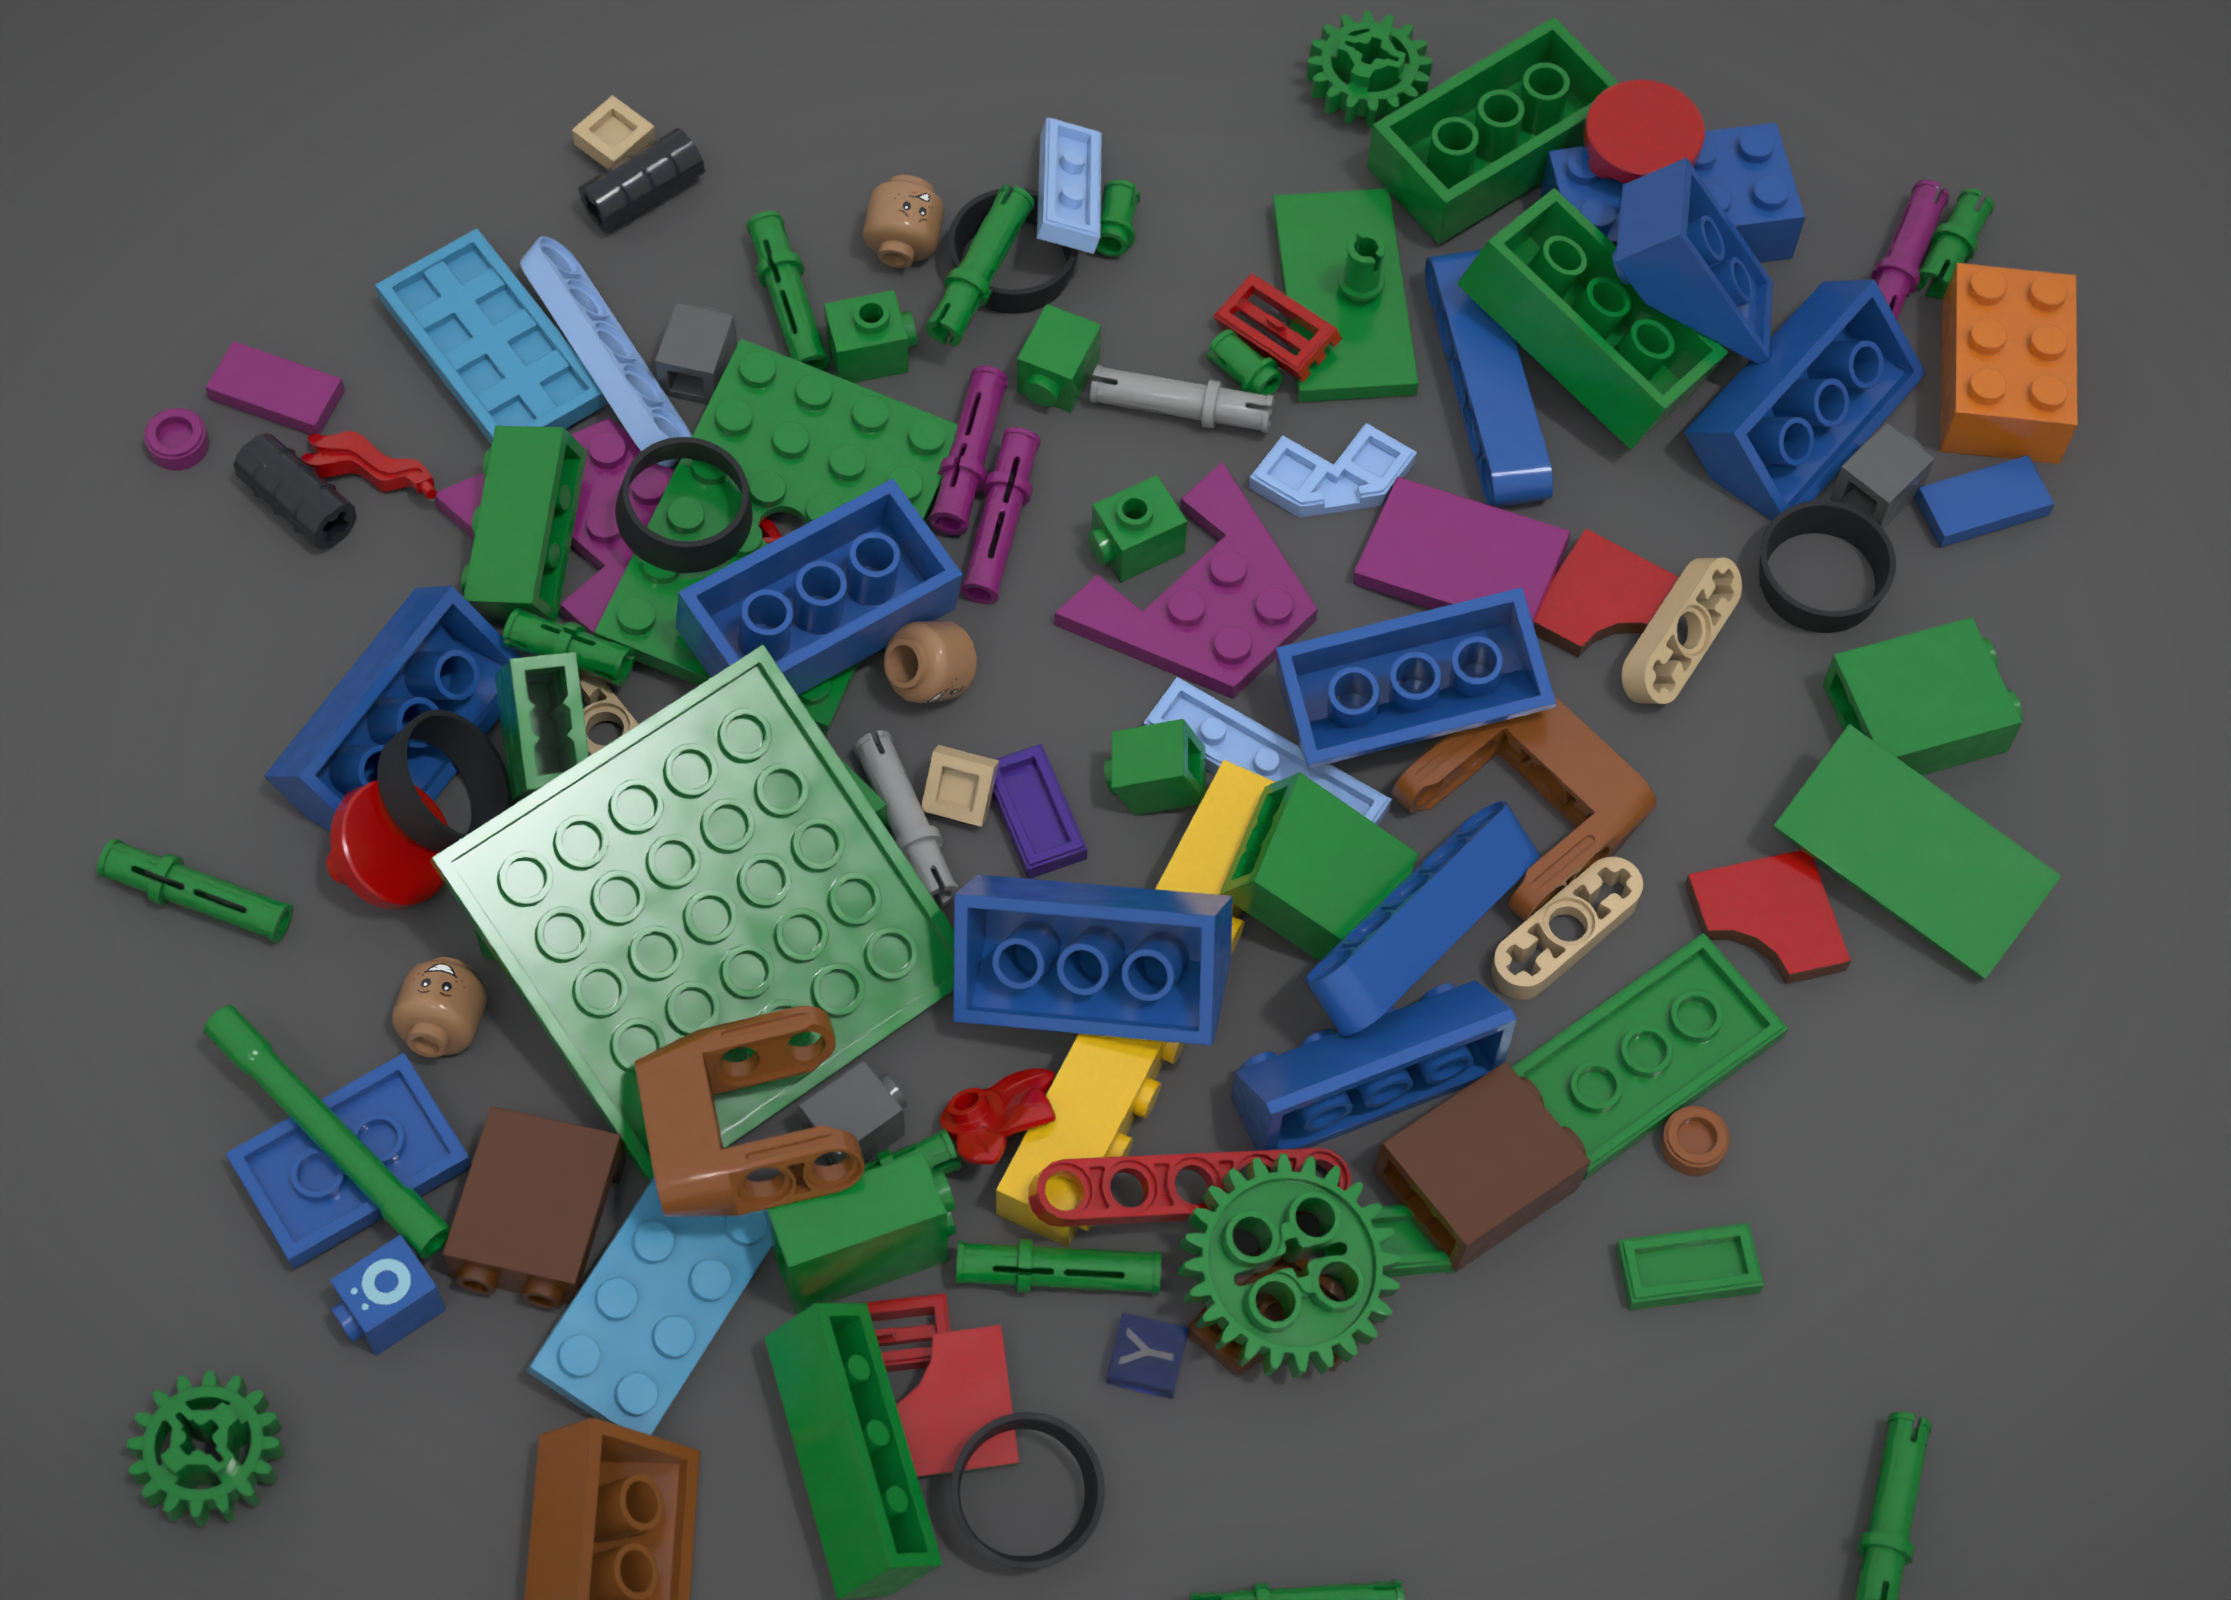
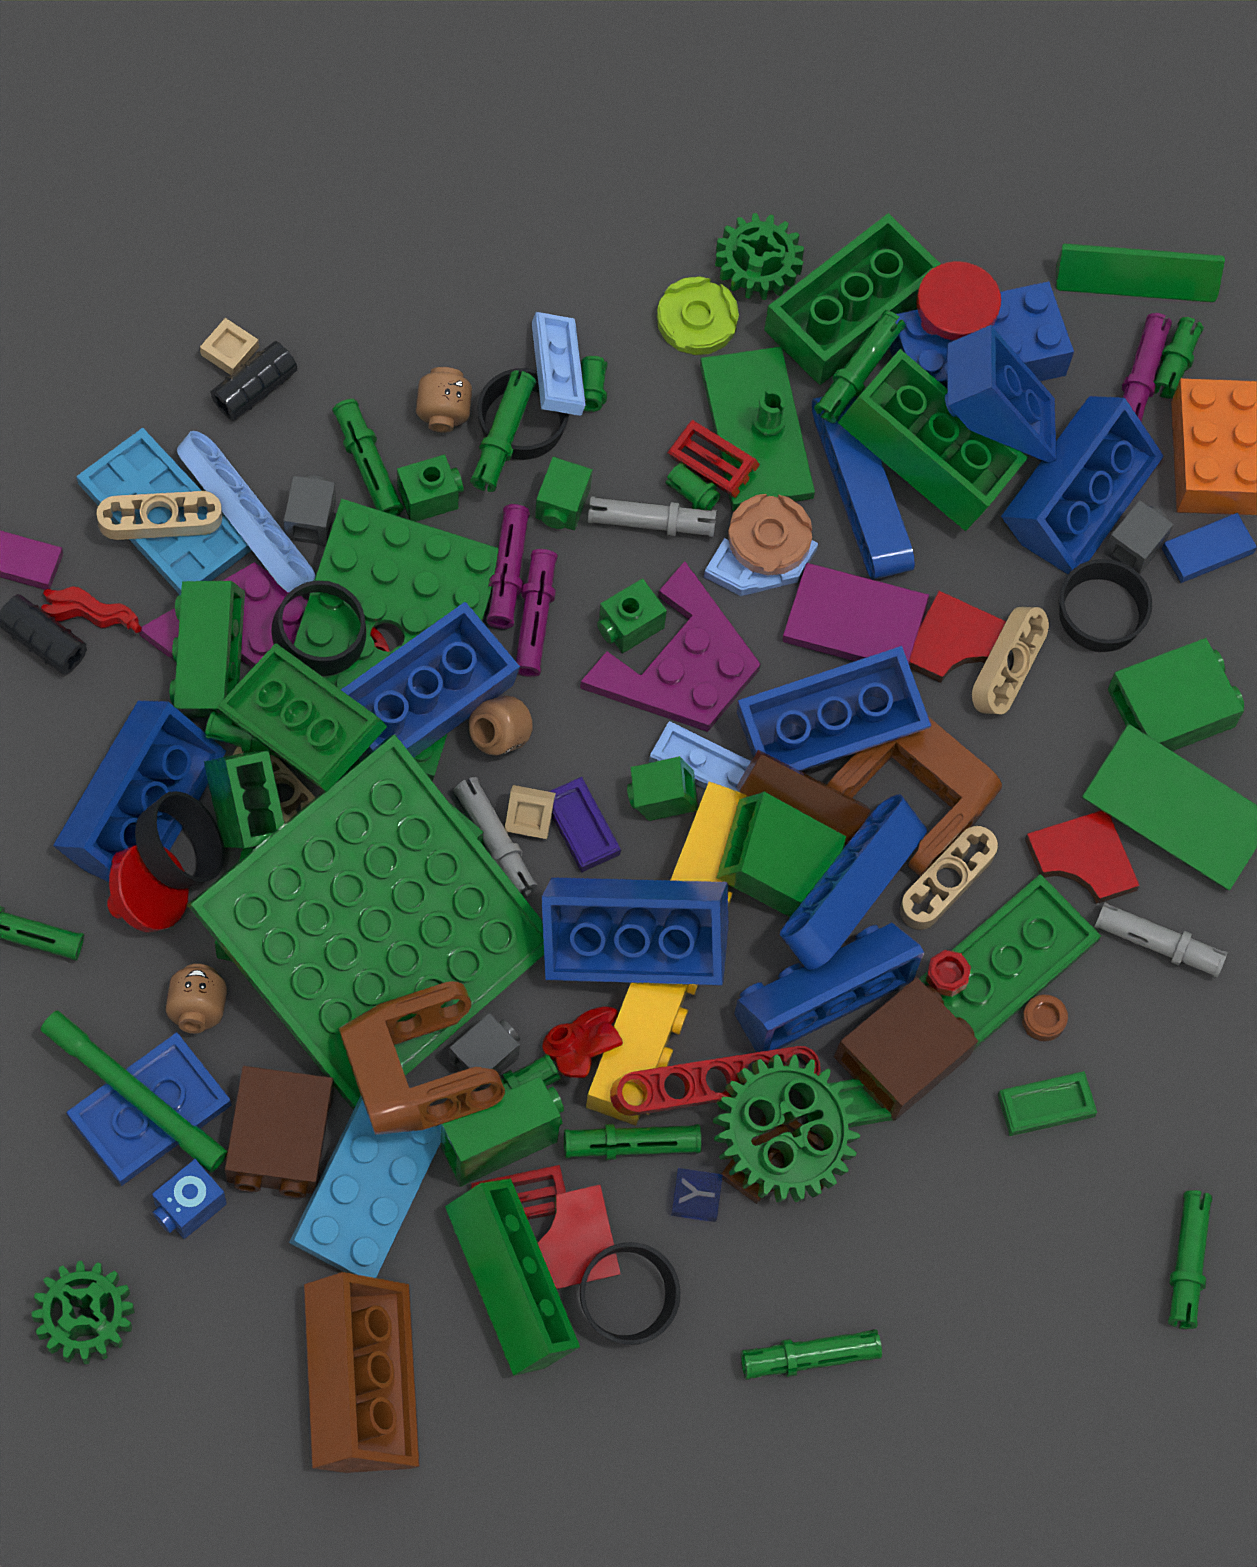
camera: 10 degrees left, 5 degrees up
(463, 324) = (146, 502): none -> tan beam
(635, 616) = (301, 717): none -> green tile
(1275, 142) = (697, 316): none -> lime tile
(1348, 433) = (770, 534): none -> nougat tile
(1361, 786) = (803, 794): none -> reddish brown tile
(1495, 212) = (849, 380): none -> green pin
(1554, 1060) = (948, 973): none -> red tile
(1878, 1041) = (1161, 939): none -> light grey pin
(1907, 127) = (1139, 272): none -> green slope

